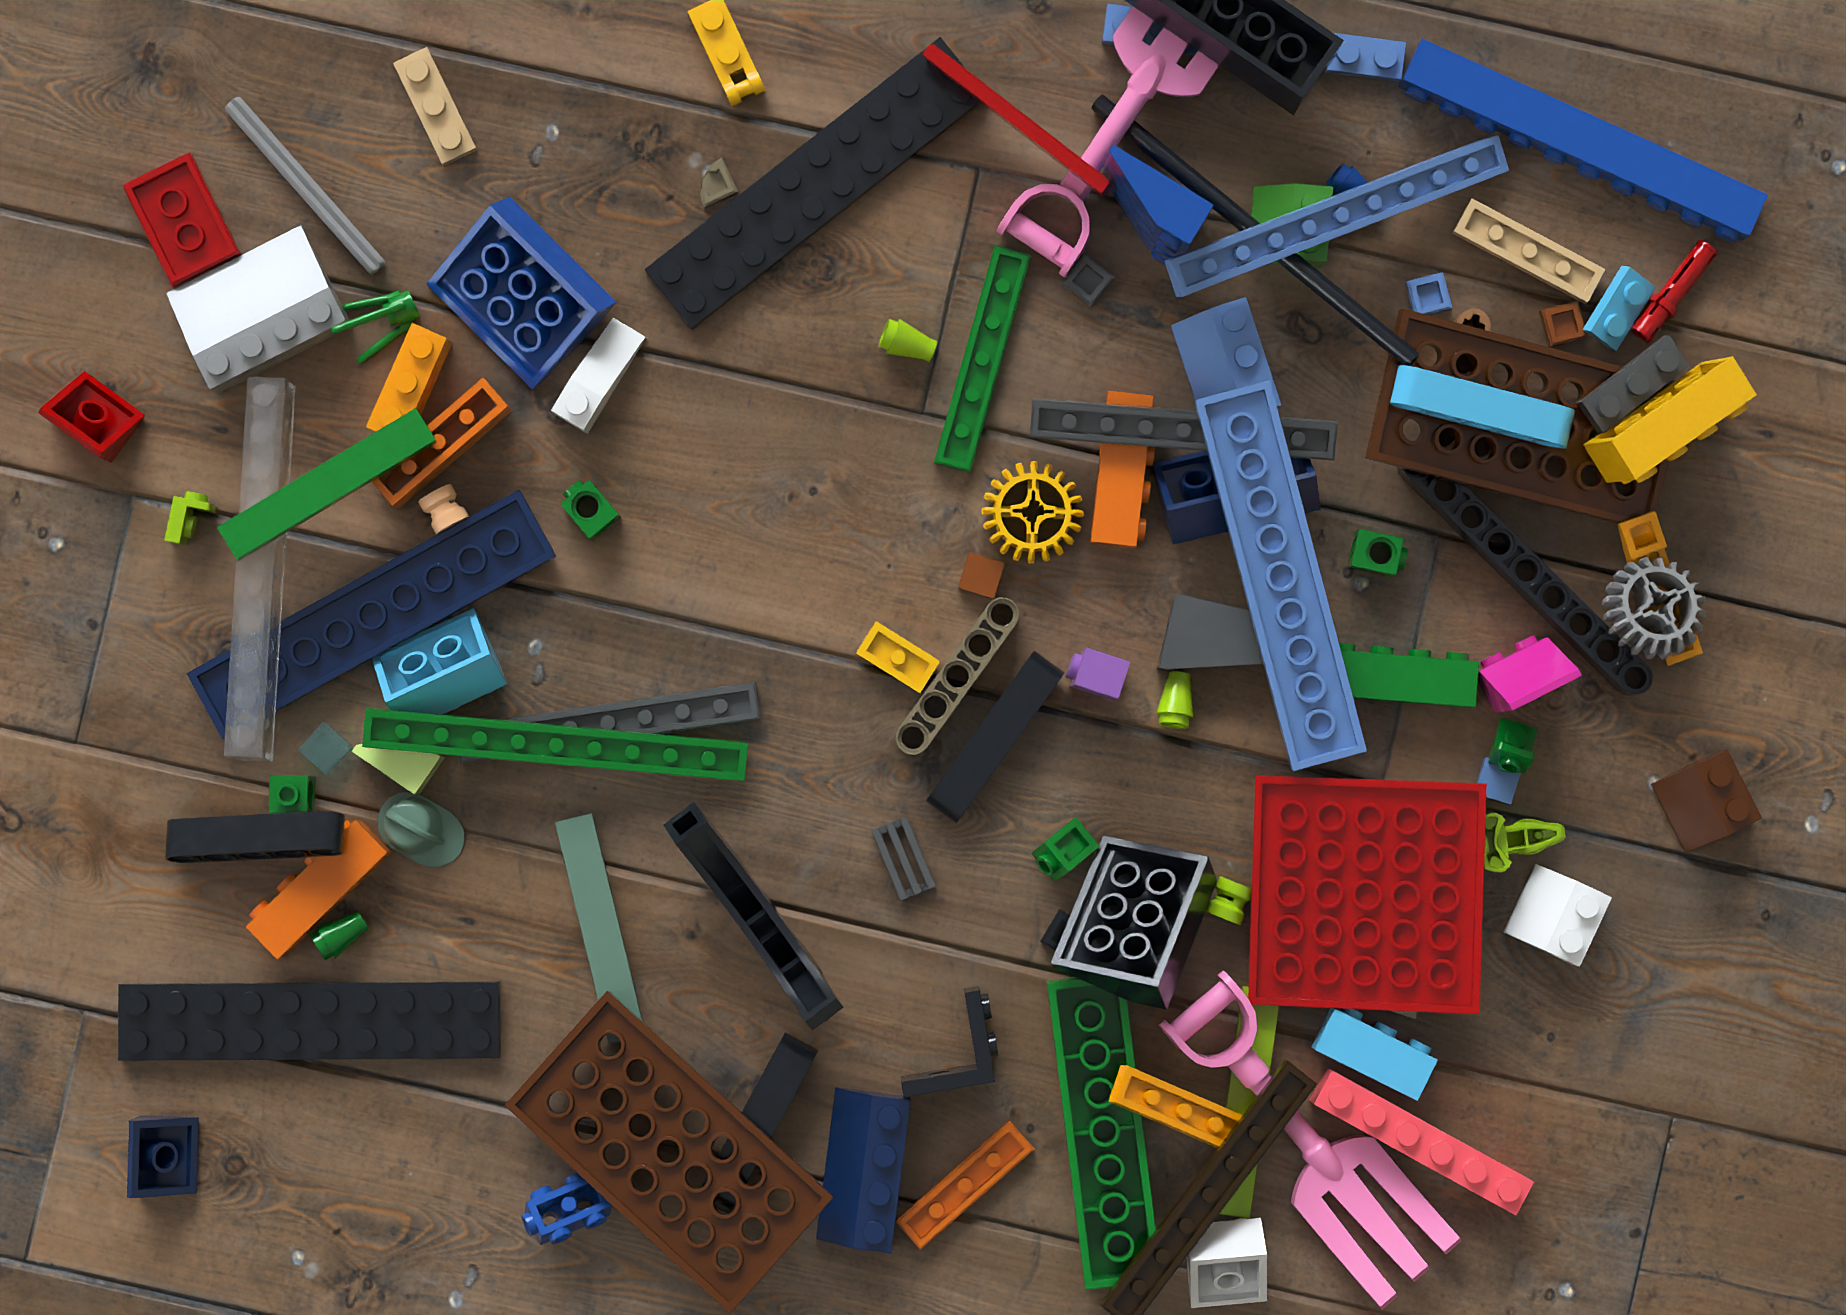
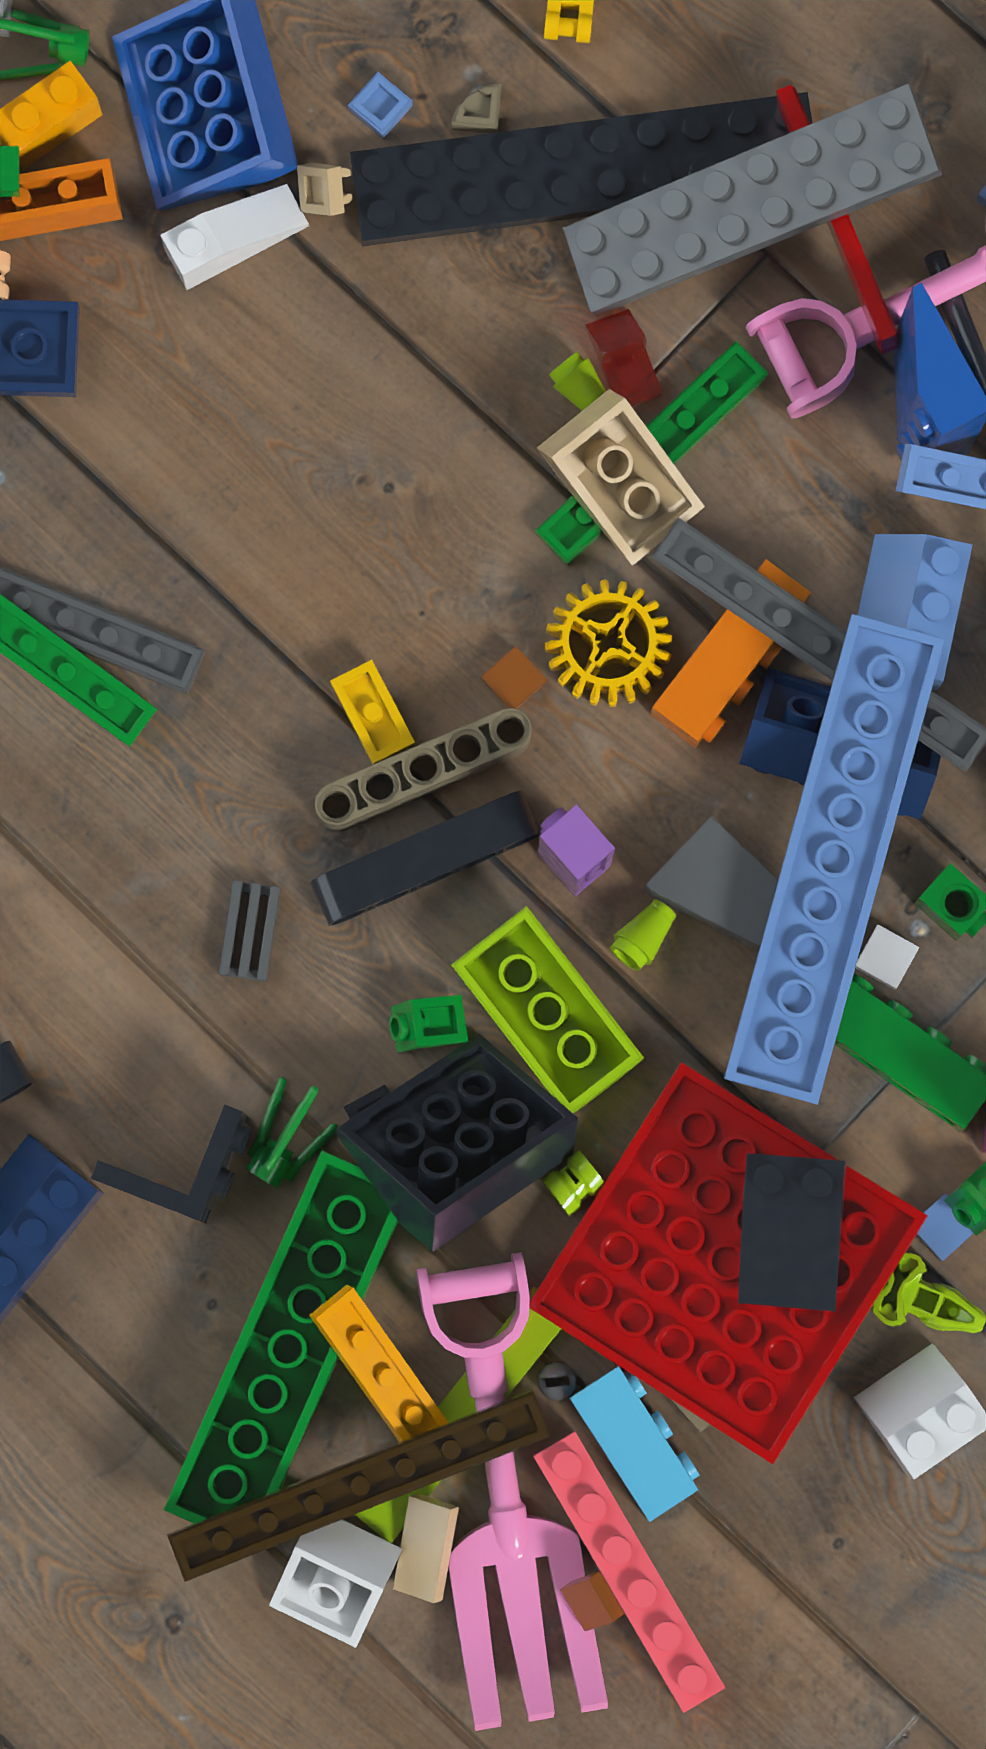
camera: 30 degrees right, 5 degrees down
(601, 521) = (143, 385): green brick -> none
(642, 308) = (322, 188): none -> tan tile
(644, 222) = (380, 105): none -> medium blue tile
(754, 915) = (53, 888): black arch -> none
(923, 303) = (623, 357): none -> clear red slope
(952, 143) = (752, 200): none -> plate
(964, 1184) = (104, 1322): orange tile -> none
(972, 390) = (620, 475): none -> tan slope
(1014, 1007) = (272, 1160): none -> green plant
(1087, 280) = (813, 436): dark grey tile -> none
(1143, 794) = (547, 1011): none -> lime brick
(1276, 1207) = (425, 1548): none -> tan tile
(1292, 1034) = (557, 1370): none -> dark grey hinge
(1351, 616) = (886, 957): none -> white tile
(1401, 850) = (791, 1231): none -> black slope
(1410, 1177) = (592, 1601): none -> dark orange tile

